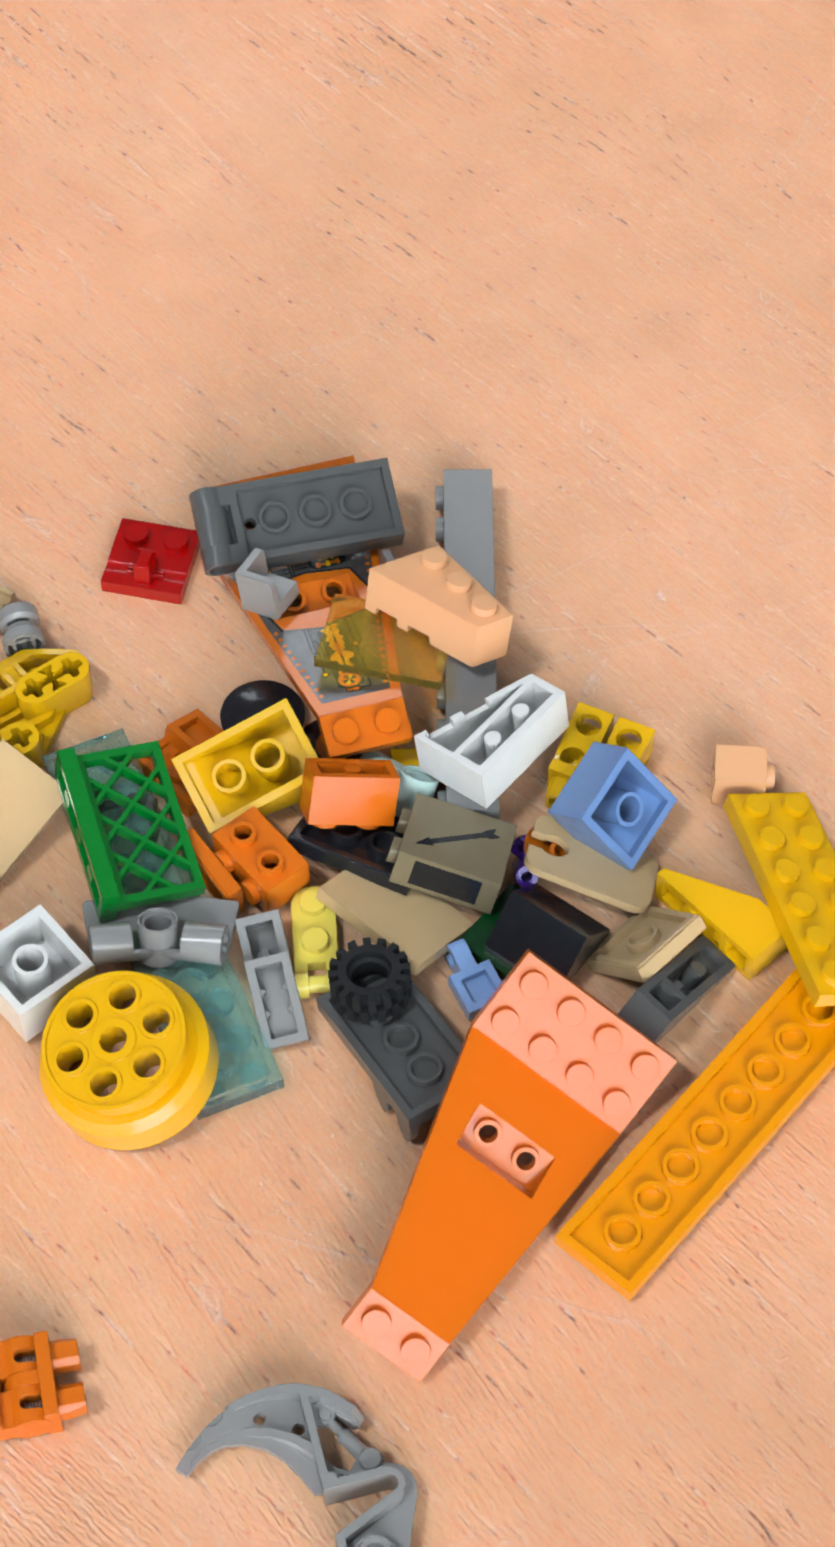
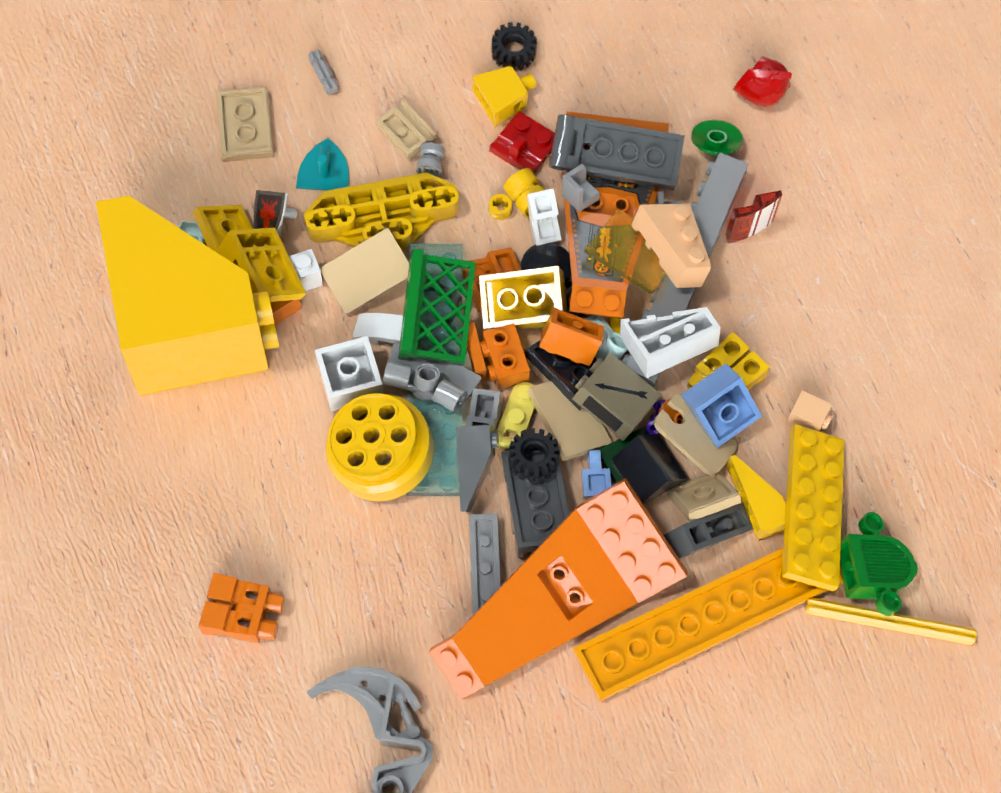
camera: 20 degrees right, 10 degrees up
(52, 887) = (379, 327): none -> white slope
(74, 417) = (514, 34): none -> black tyre
(85, 502) = (502, 93): none -> yellow torso
(159, 649) = (493, 209): none -> yellow bush
(185, 622) = (521, 184): none -> yellow wheel
(226, 645) = (543, 217): none -> white slope
(282, 1013) = (475, 454): none -> slope
(360, 1162) = (484, 557): none -> light grey plate
(428, 453) = (716, 137): none -> green dish
(463, 357) = (764, 83): none -> red helmet
(533, 539) = (754, 218): none -> clear red slope

